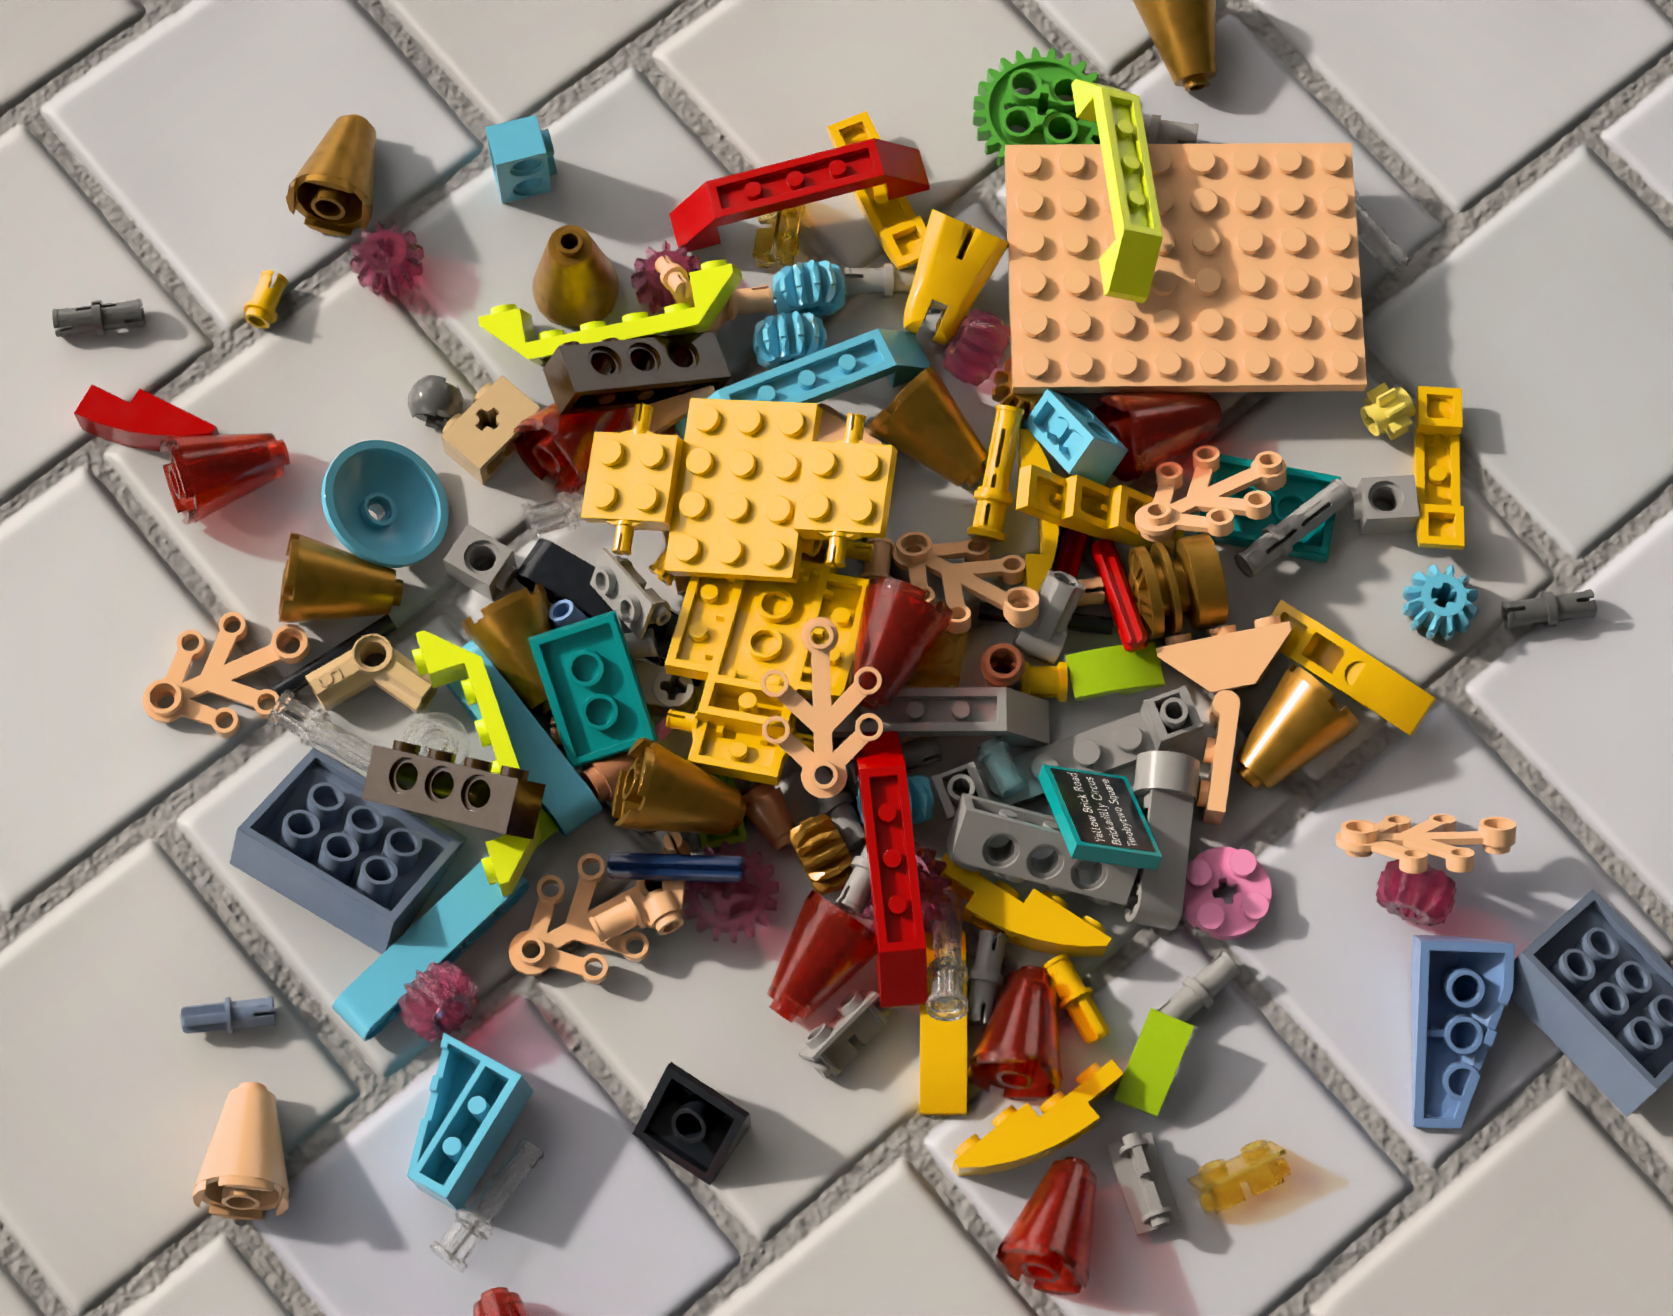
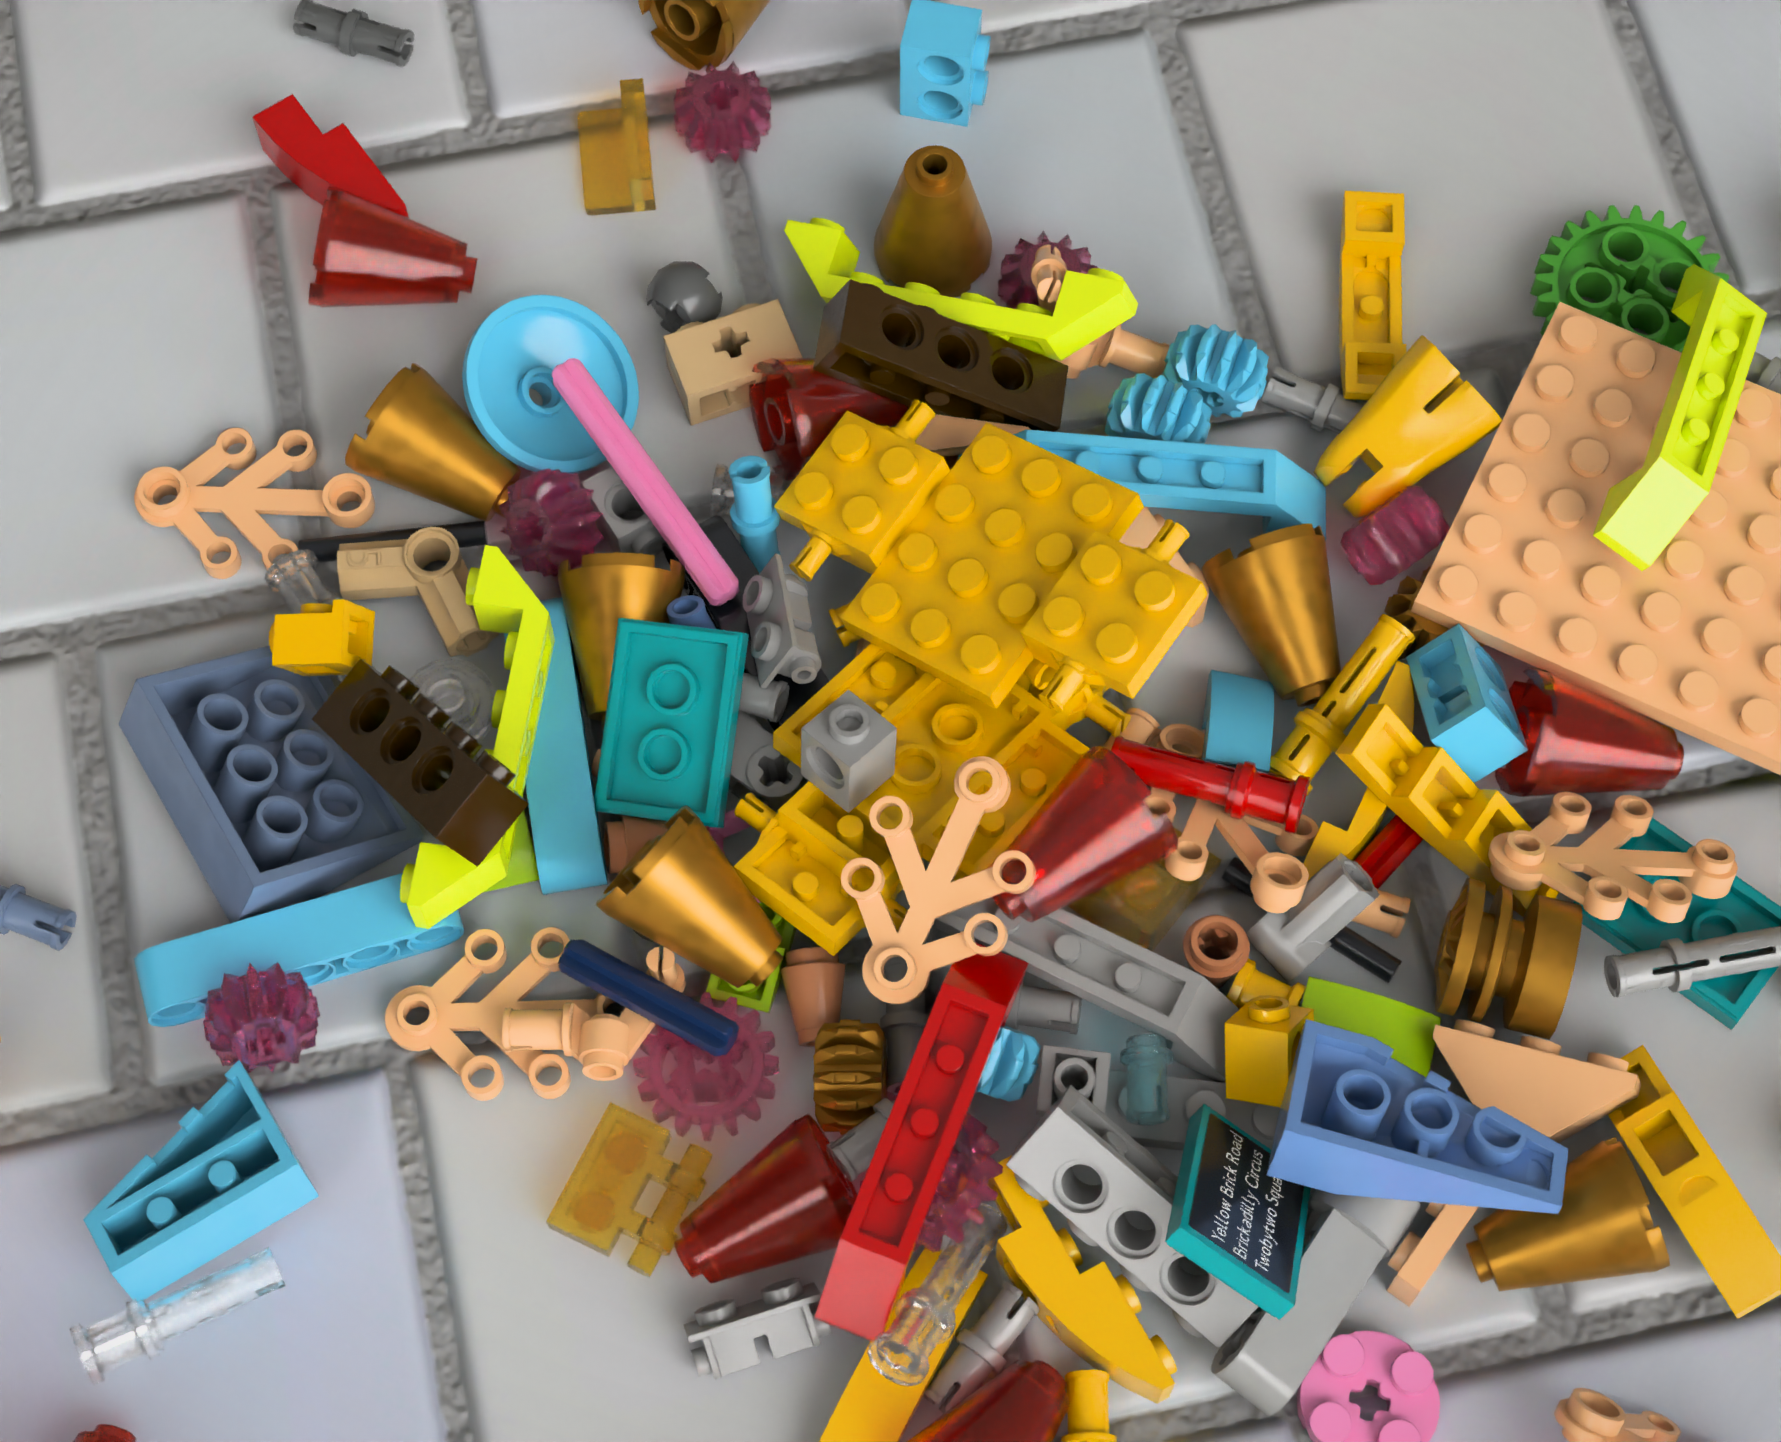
camera: 30 degrees right, 5 degrees down
(262, 308) = (551, 99): yellow pin -> none
(331, 321) = (617, 155): none -> clear yellow panel
(337, 744) = (323, 638): none -> yellow brick
(438, 595) = (550, 521): none -> clear pink gear
(487, 539) = (645, 482): none -> bright pink axle
(567, 525) = (754, 509): none -> medium azure pin
(692, 1124) = (489, 1345): black slope -> none
(708, 990) = (611, 1179): none -> clear yellow plate
(723, 654) = (848, 750): none -> light grey brick
(781, 240) = (1236, 268): clear yellow hinge -> none
(796, 184) = (1270, 234): red slope -> none
(942, 518) = (1238, 720): none -> medium azure slope
(966, 559) = (1239, 789): none -> red pin
(1066, 713) = (1262, 1049): none -> yellow brick
(1119, 595) = (1422, 936): red axle -> none
(1160, 727) = (1386, 1132): none -> medium blue wedge

